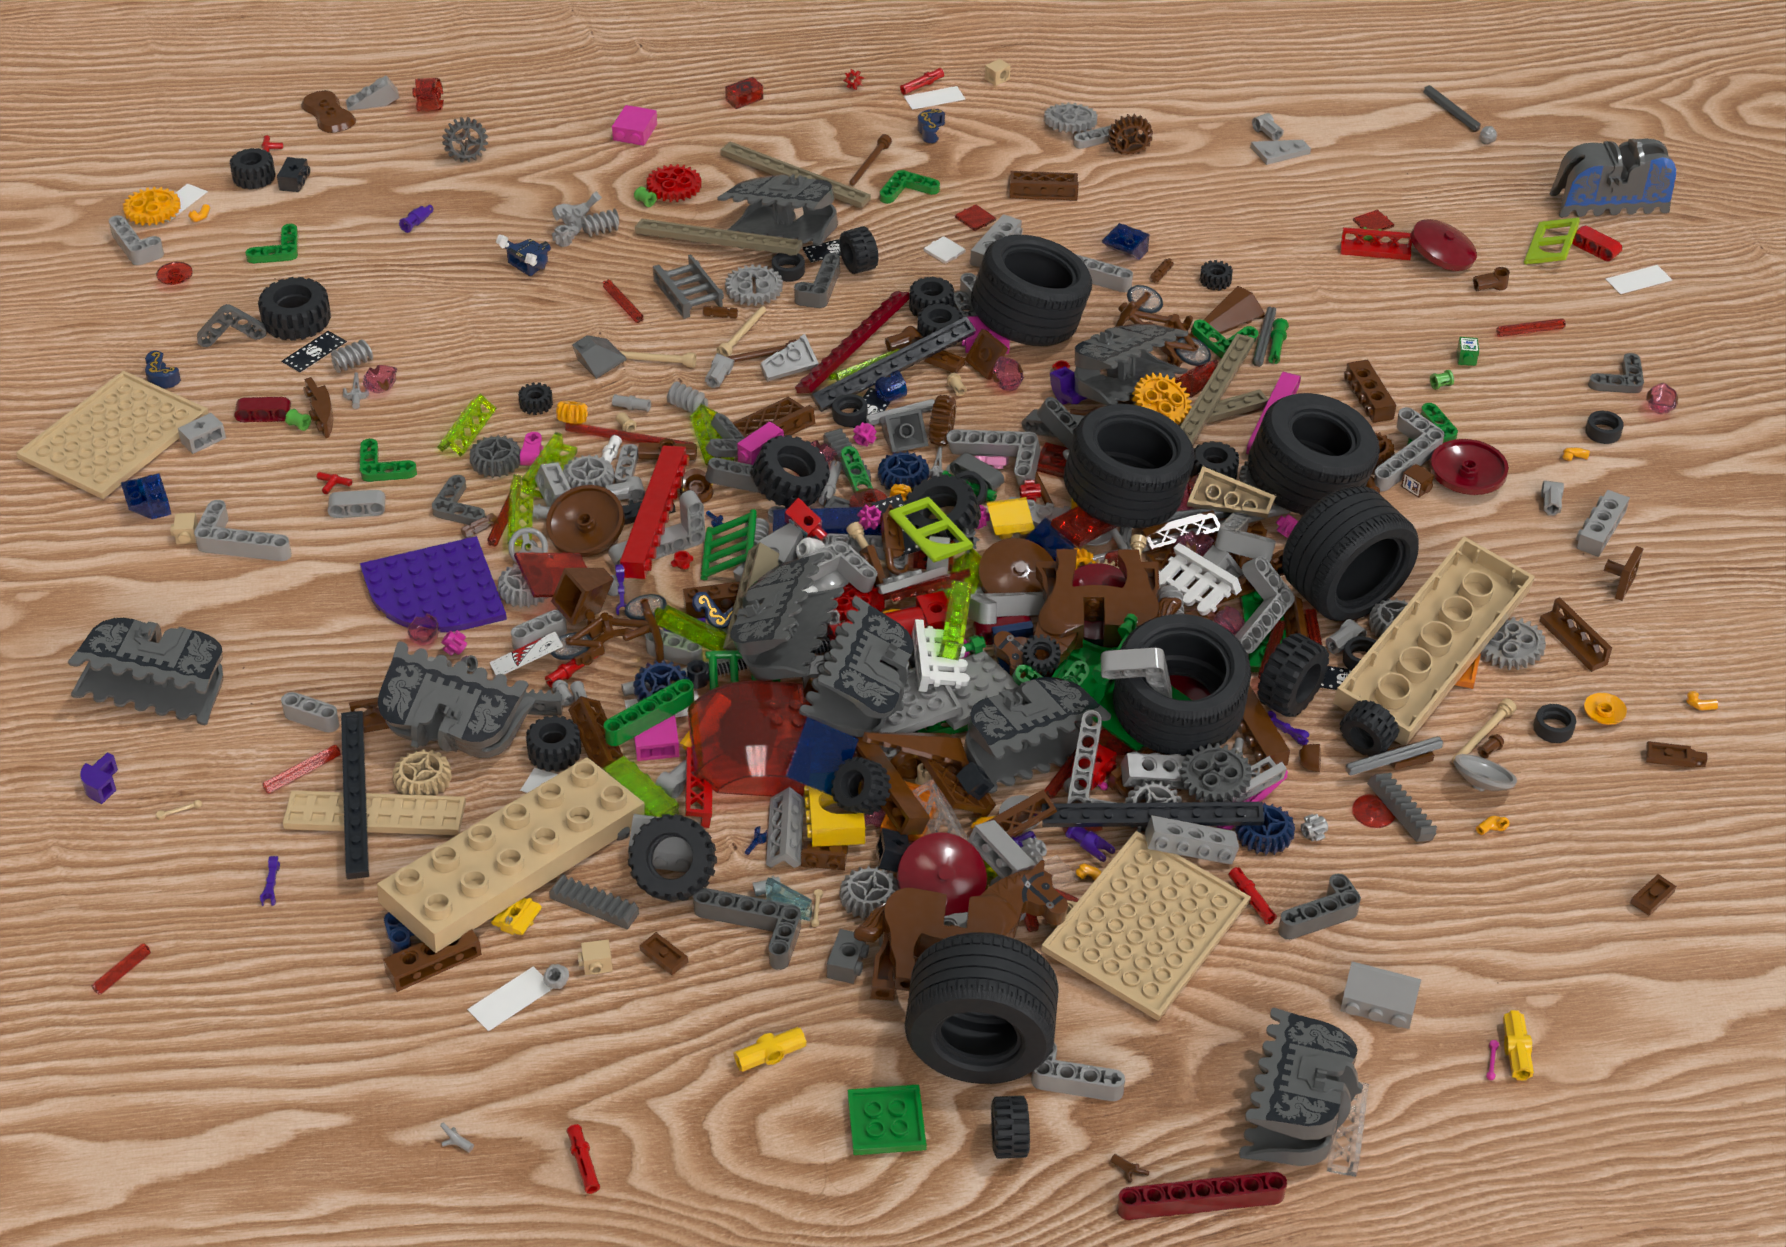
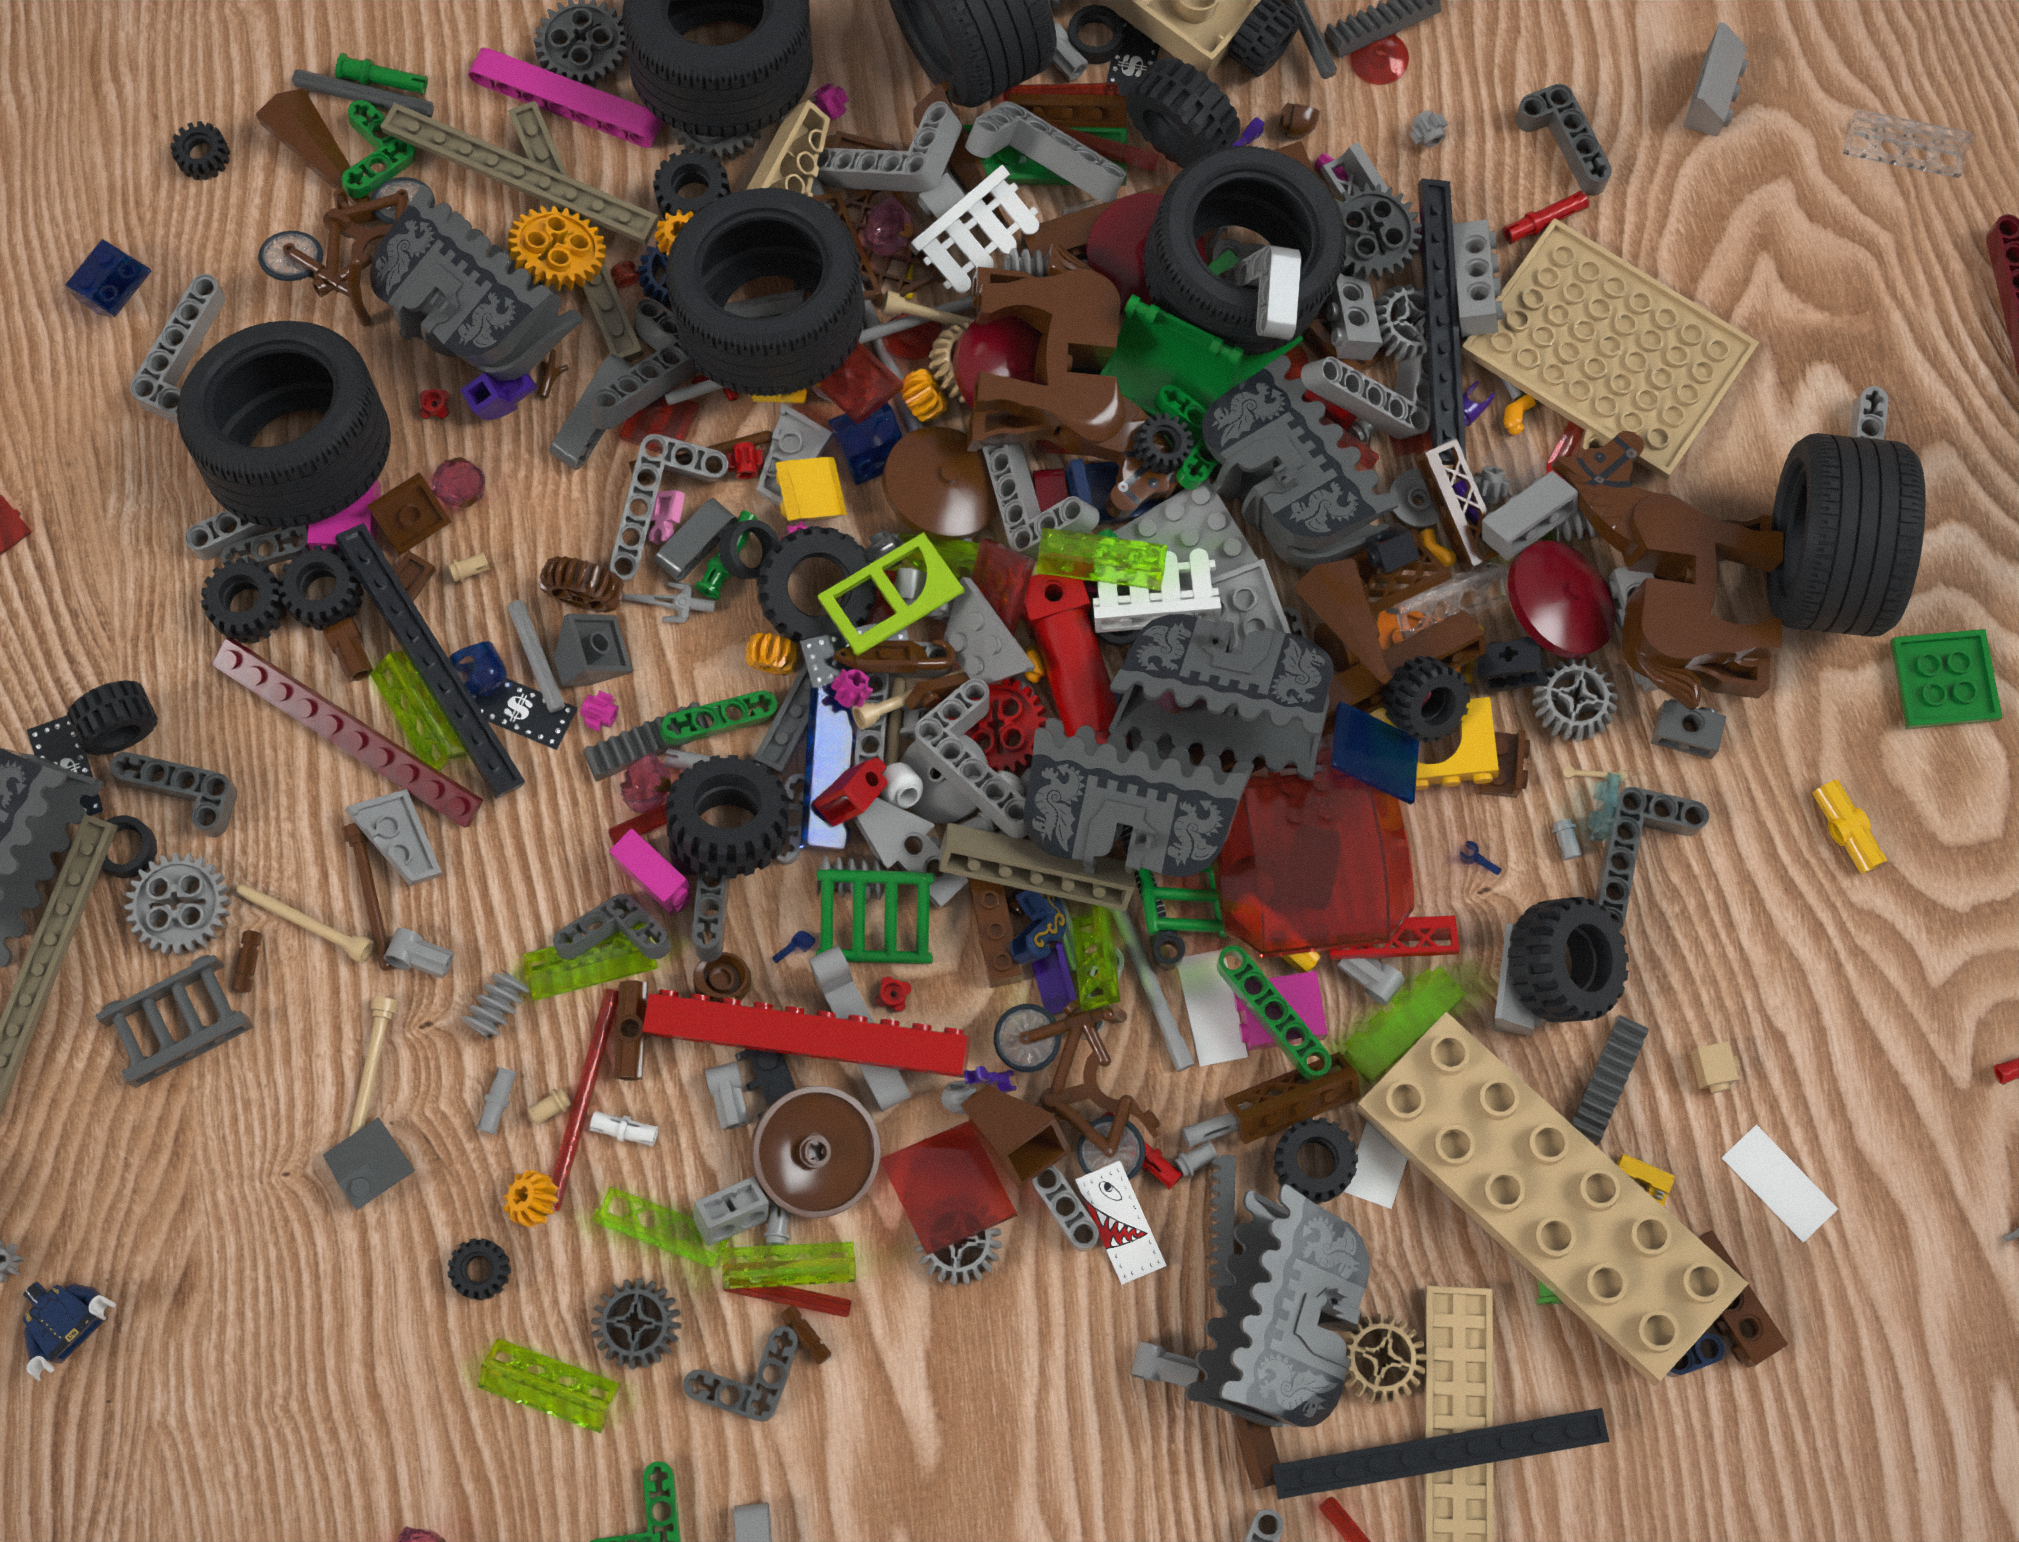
camera: 90 degrees left, 30 degrees up
(423, 635) = (1069, 1394): clear pink hair -> none
(437, 580) = (954, 1392): dark purple plate -> none
(454, 642) = (1097, 1341): dark pink gear -> none
(471, 661) = (1136, 1314): dark grey hinge -> none
(524, 532) = (872, 1242): light grey piece -> none
(531, 448) = (630, 1261): dark pink piece -> none
(556, 976) = (1753, 1119): light grey piece -> none
(589, 471) = (676, 1159): light grey gear -> none
(623, 301) = (202, 1136): clear red axle -> none
(624, 459) = (634, 1088): light grey beam -> none
(658, 676) = (1173, 991): dark blue gear -> none
(664, 953) = (1697, 974): reddish brown plate -> none
(790, 826) = (1465, 808): light grey fence -> none
(797, 419) = (570, 841): reddish brown fence -> none
(849, 401) = (517, 717): black tyre -> none
(866, 497) = (779, 714): clear red dish -> none
(902, 469) = (682, 657): dark blue gear -> none
(944, 250) = (86, 583): white piece -> none
(1003, 227) = (120, 520): light grey brick -> none
(1010, 1127) = (1968, 522): black tyre -> none
(1128, 1167) = (1984, 396): reddish brown bar -> none
(1162, 269) = (177, 234): reddish brown axle -> none
(1197, 377) = (471, 198): clear red slope -> none
(1229, 618) = (1045, 198): clear pink hair -> none
(1271, 836) = (1437, 169): dark blue gear -> none
(1303, 1091) = (1861, 183): dark grey animal -> none

